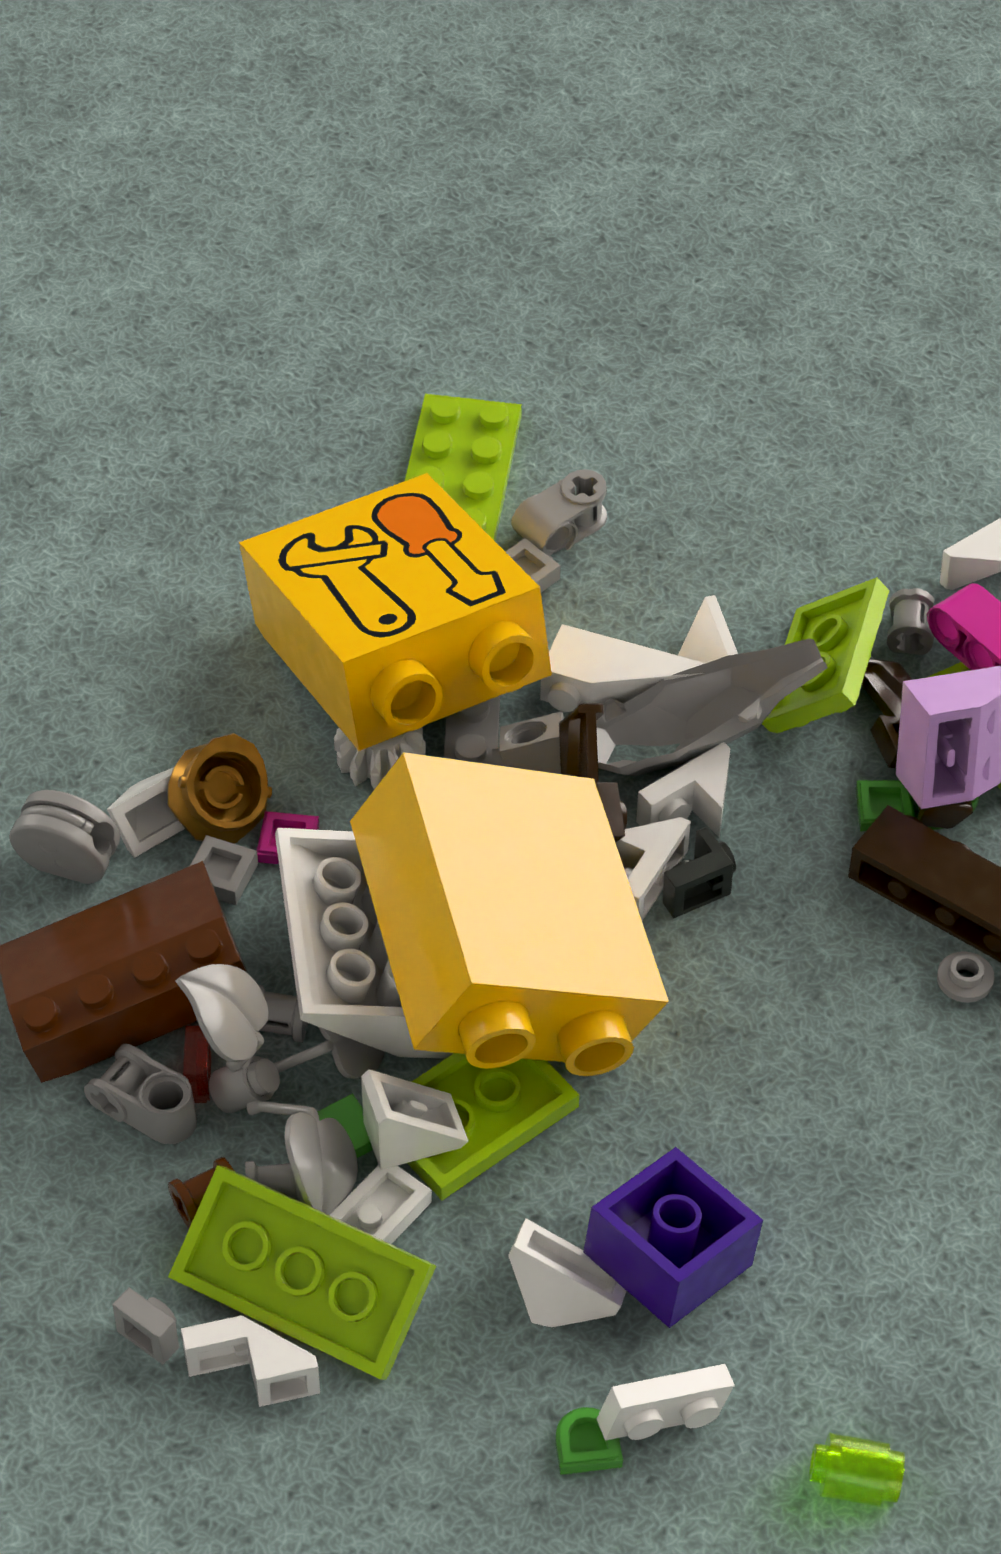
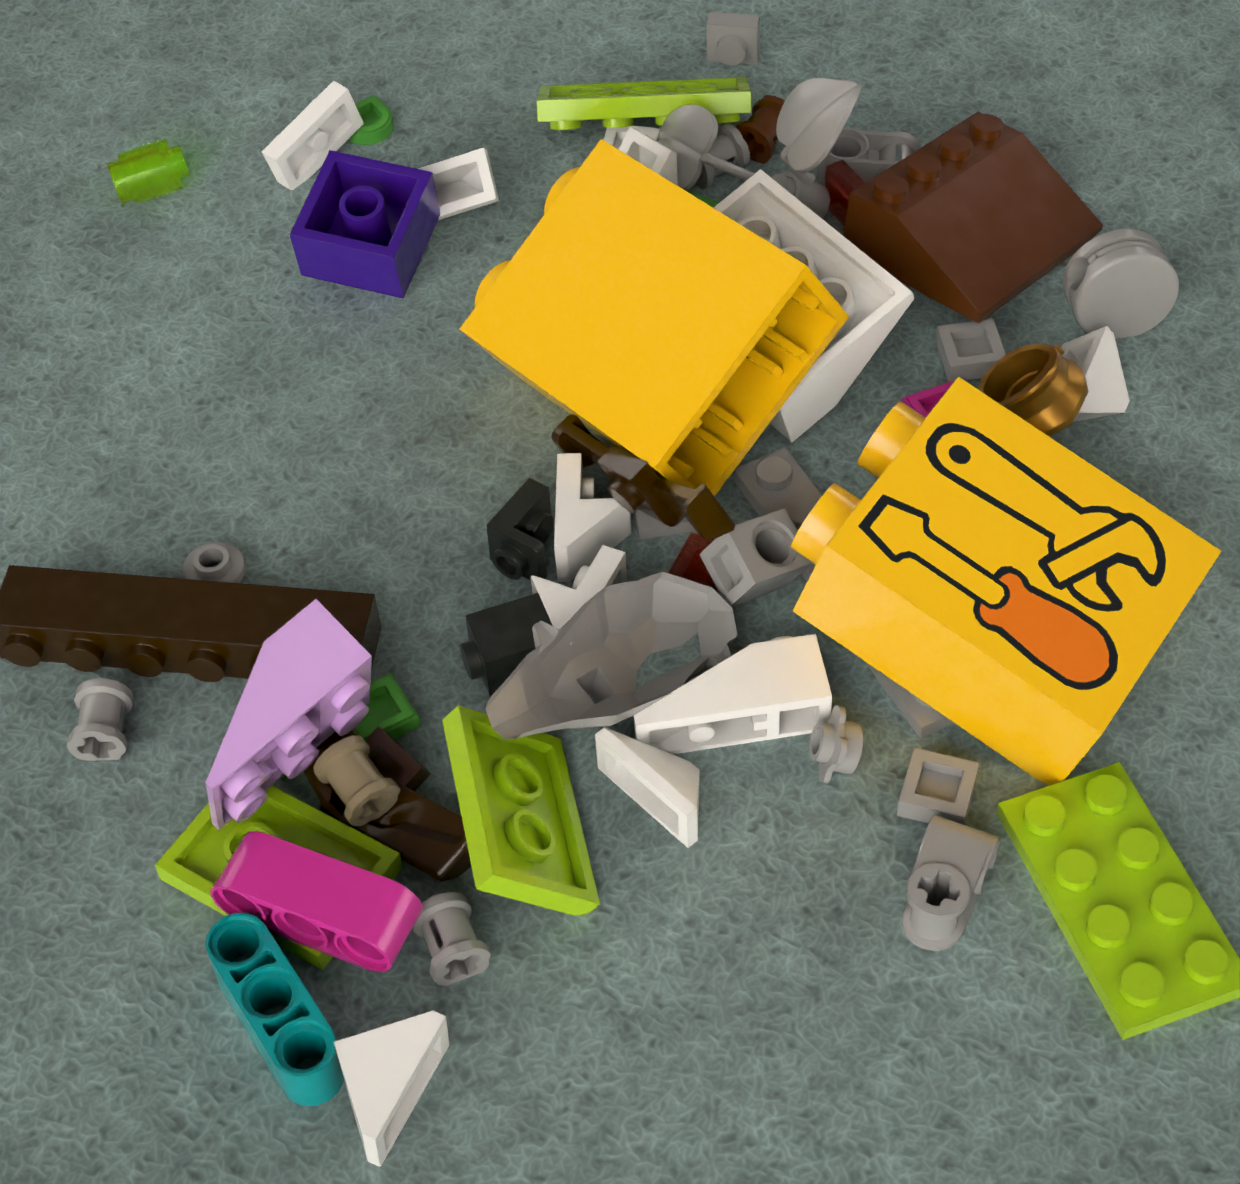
camera: 155 degrees right, 0 degrees up
(277, 1366) = (626, 54): white slope -> none
(571, 614) = (836, 744): none -> light grey plate
(761, 788) = (501, 639): none -> pearl dark grey brick

